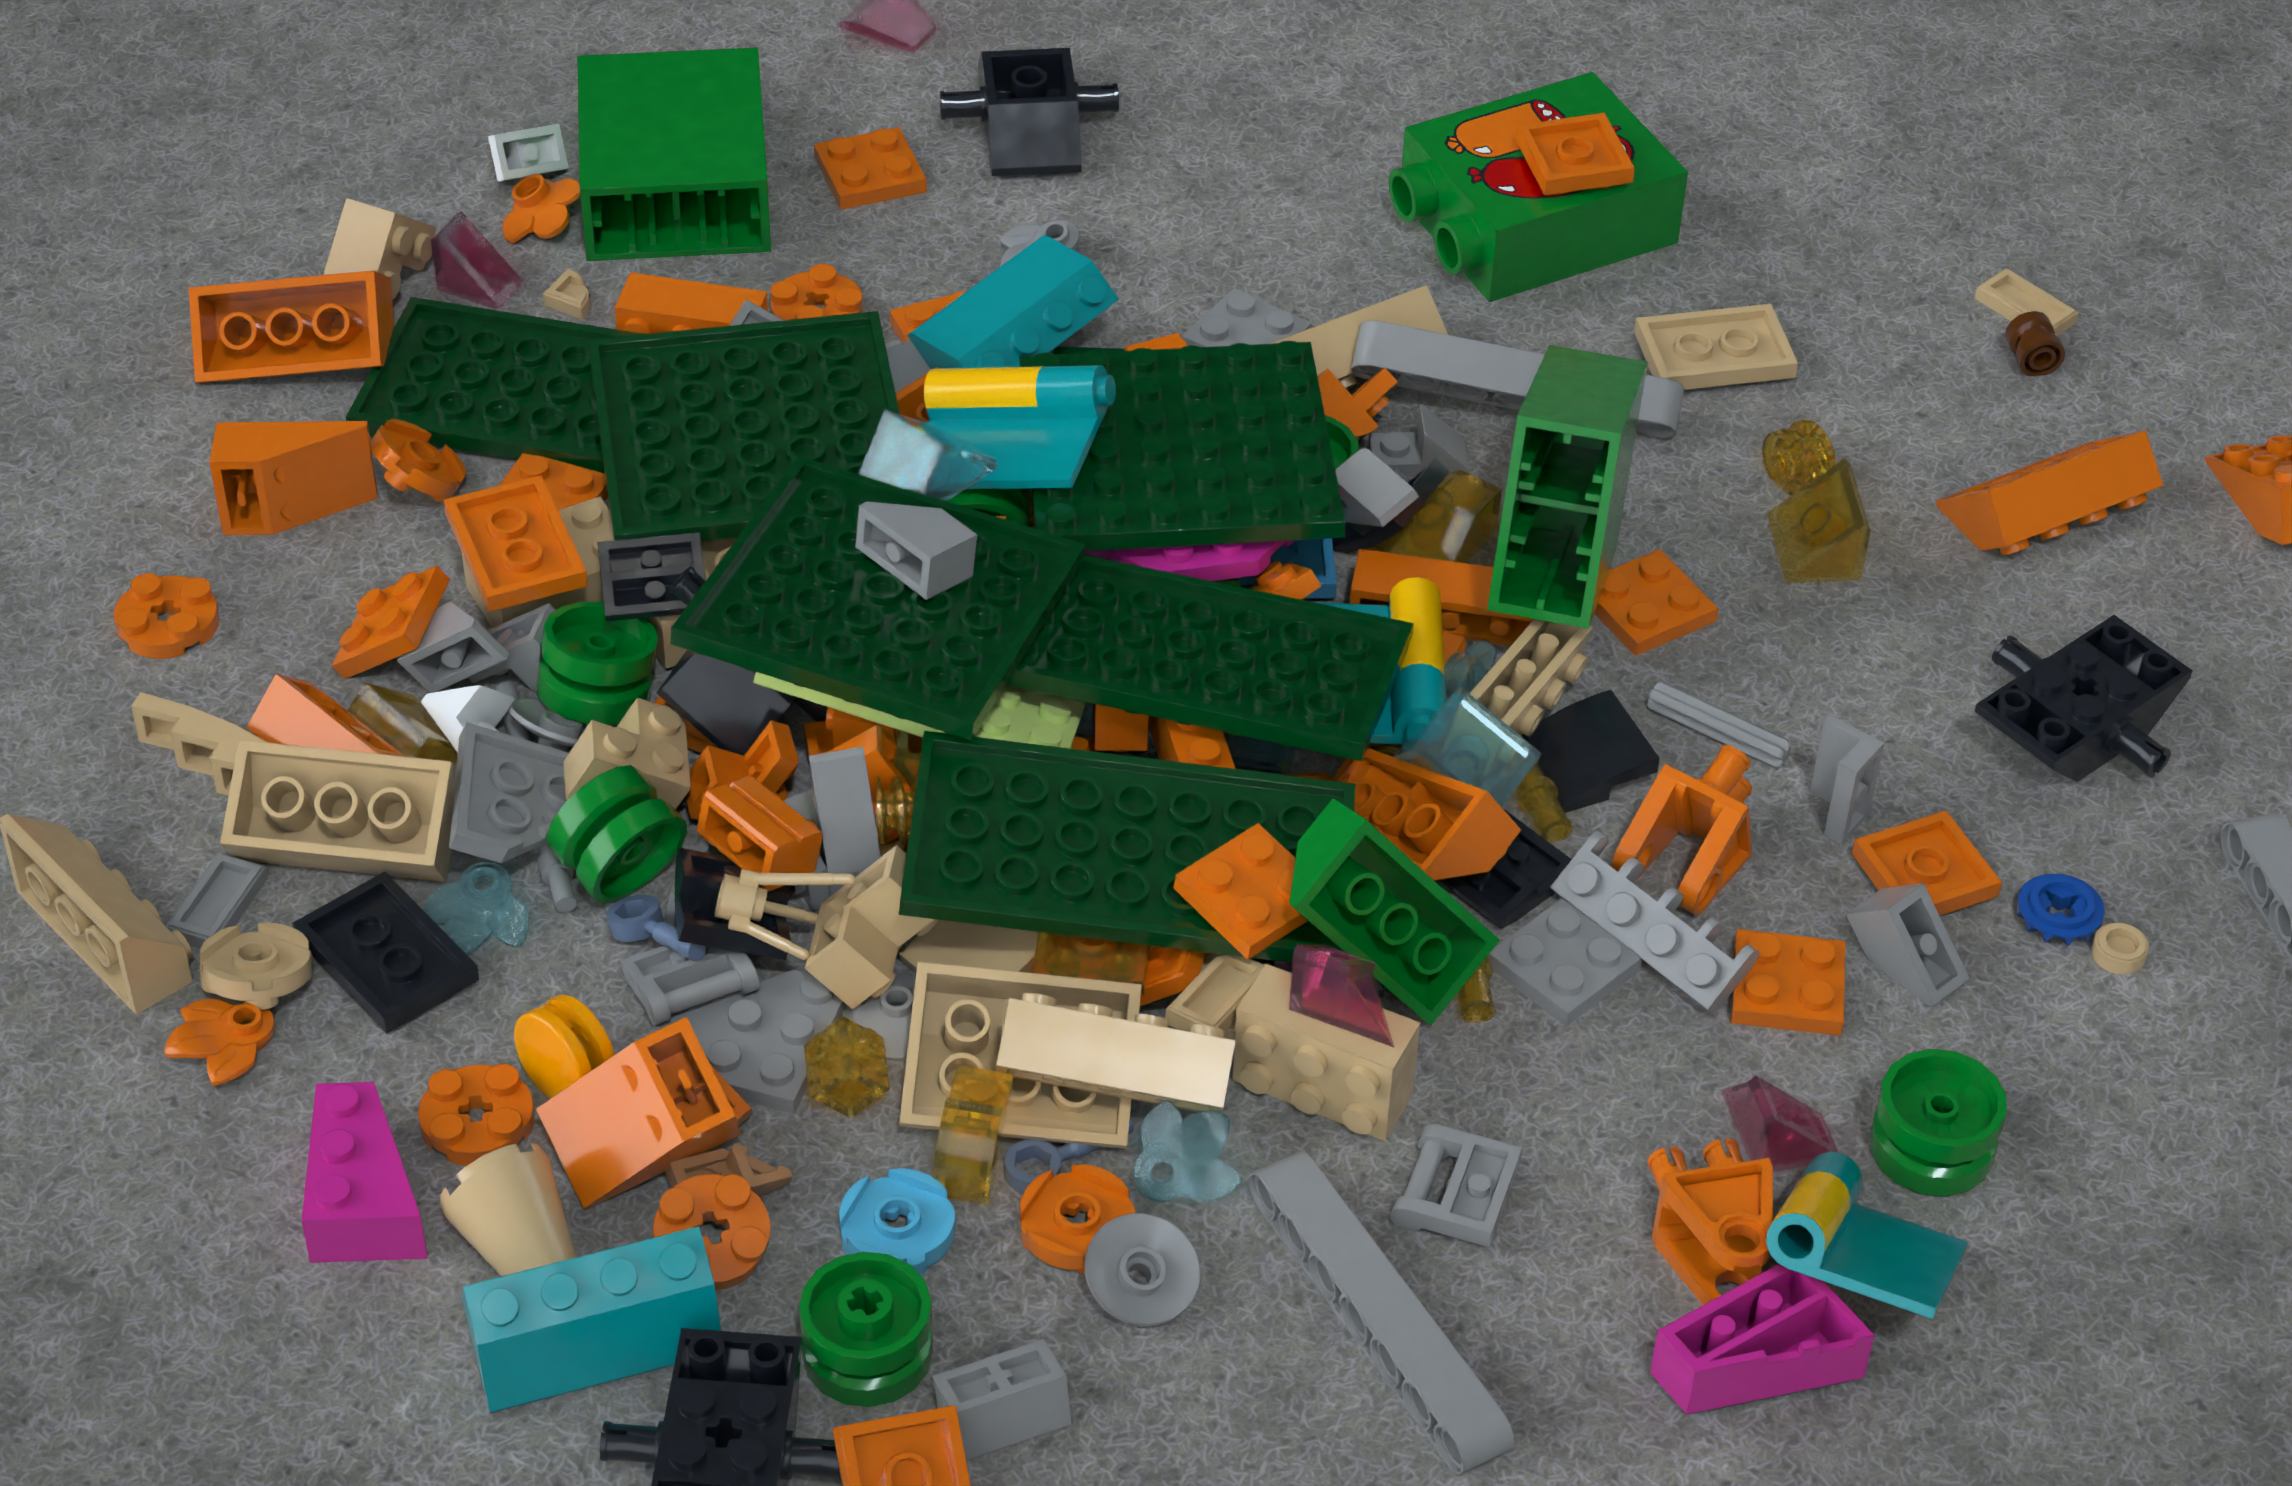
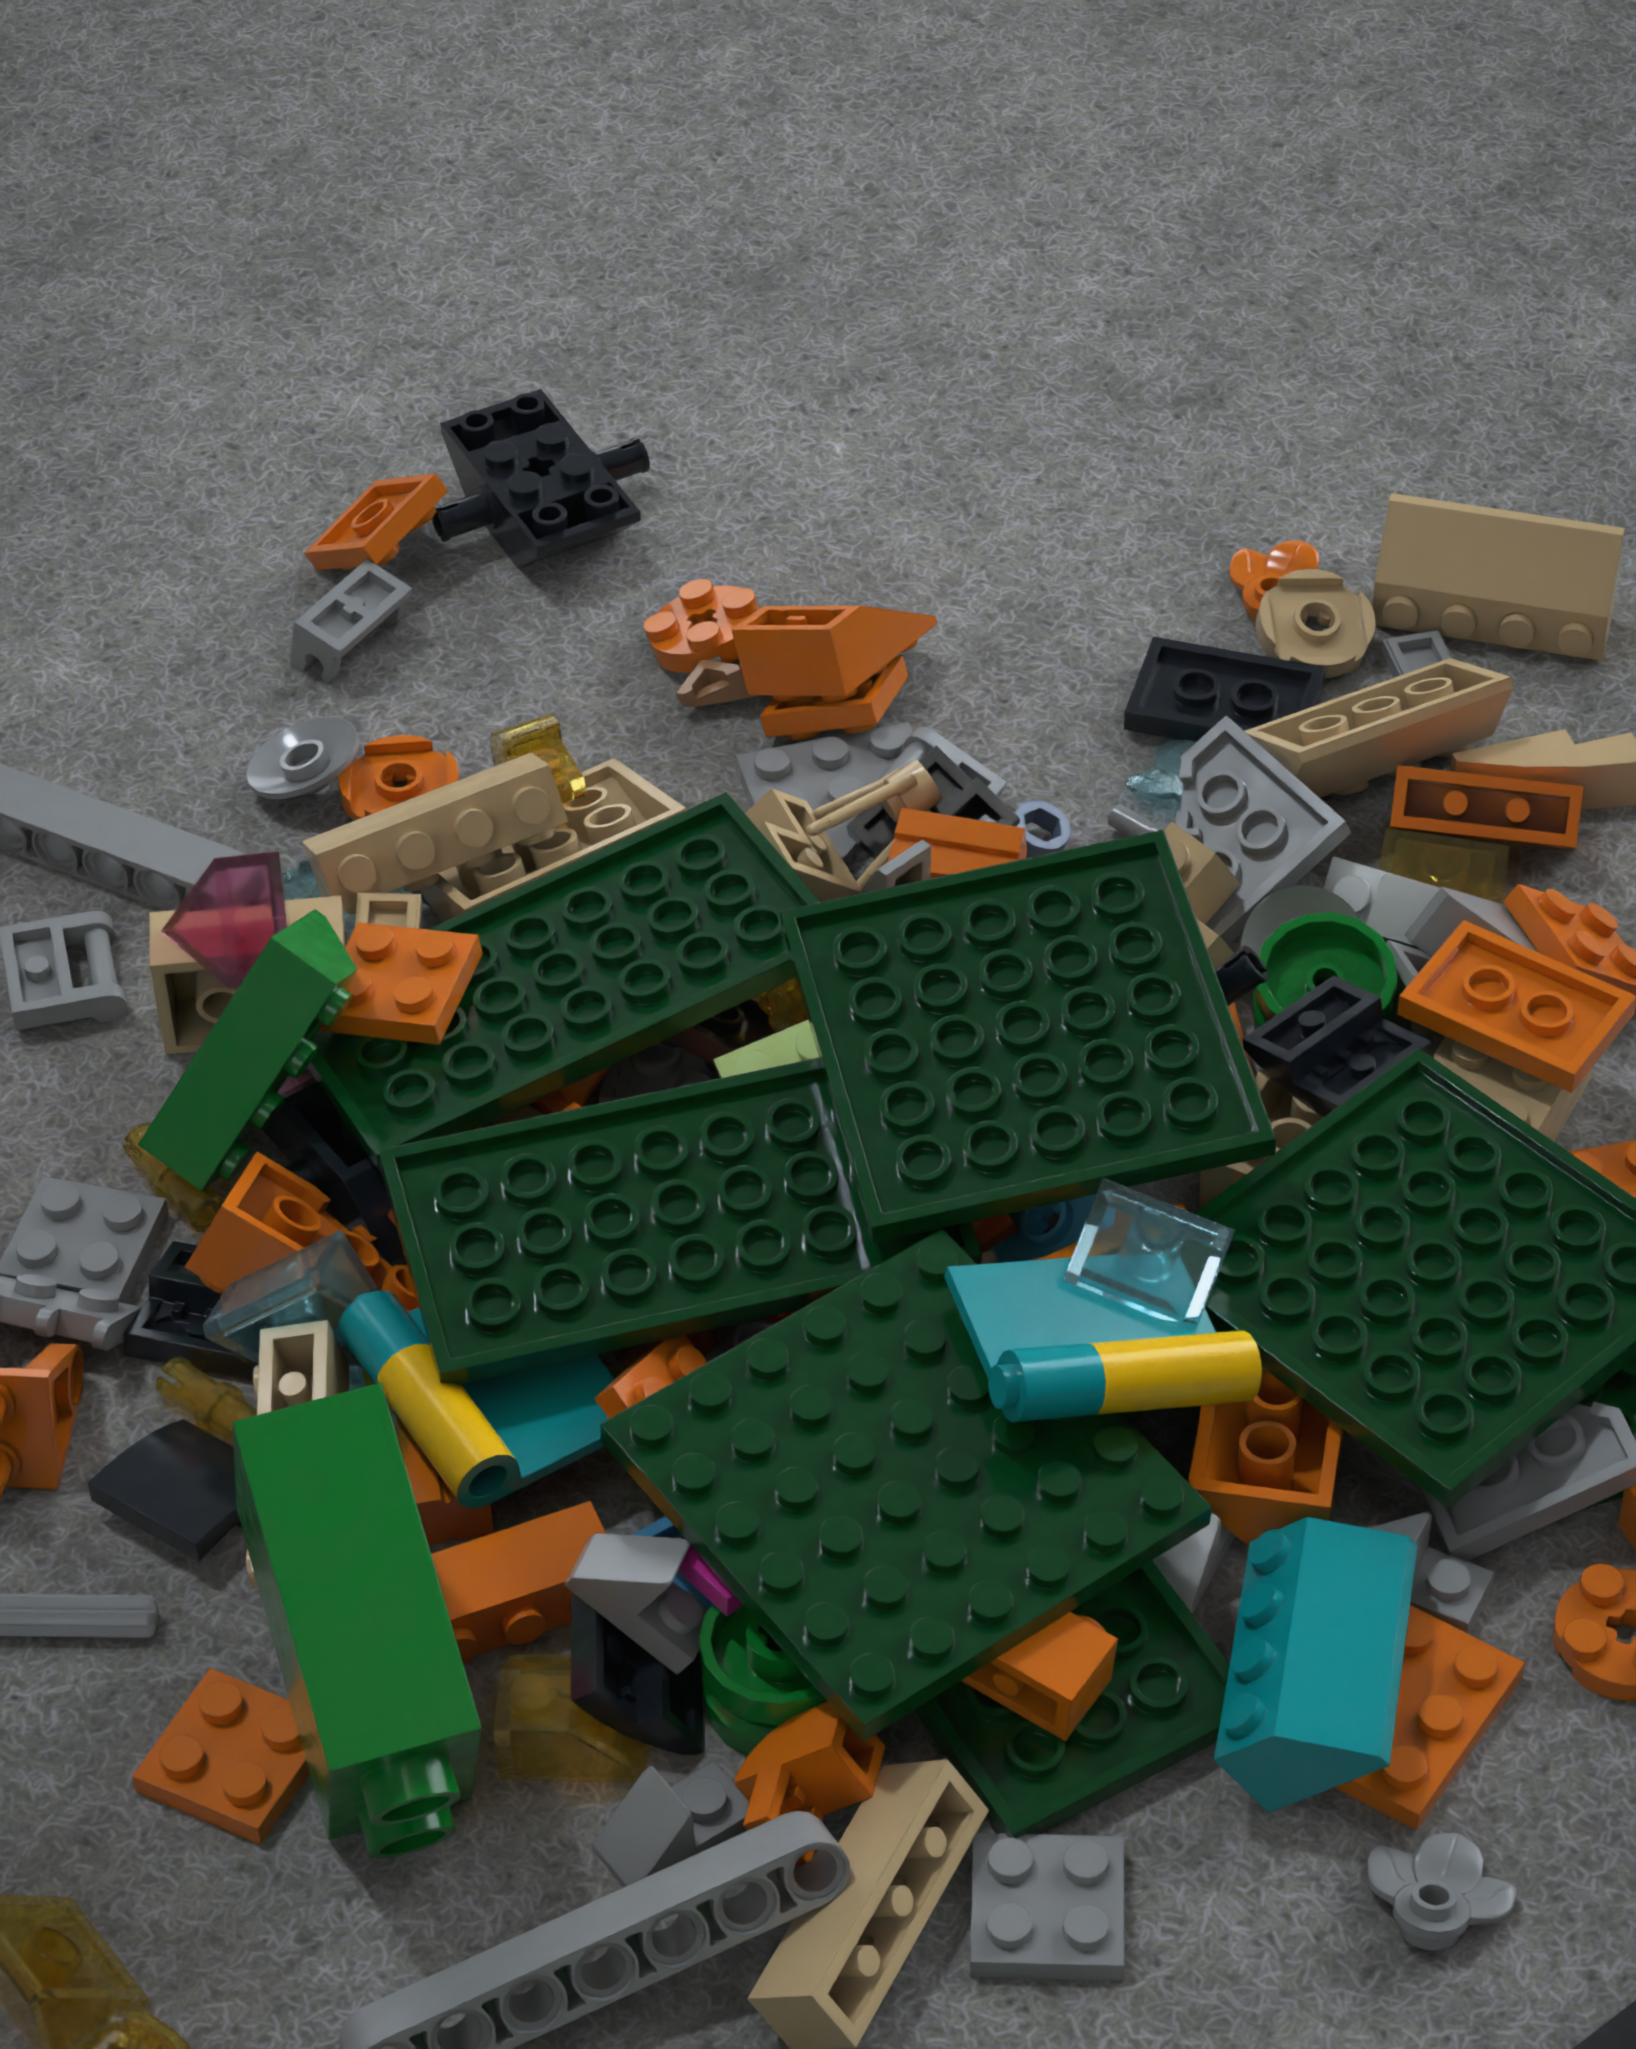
camera: 150 degrees right, 0 degrees up
(356, 1183) = (1033, 521): dark pink wedge -> none
(472, 1087) = (1003, 607): orange plate -> none
(510, 1210) = (862, 542): tan cone -> none
(560, 1043) = (961, 666): light orange head -> none
(589, 1318) = (731, 501): teal slope -> none
(616, 834) = (1100, 806): green wheel -> none
(846, 1067) = (703, 769): clear yellow brick -> none
(866, 1329) = (501, 607): green wheel -> none
(907, 1193) = (585, 704): medium azure plate -> none
(917, 545) = (1014, 1049): light grey slope -> none

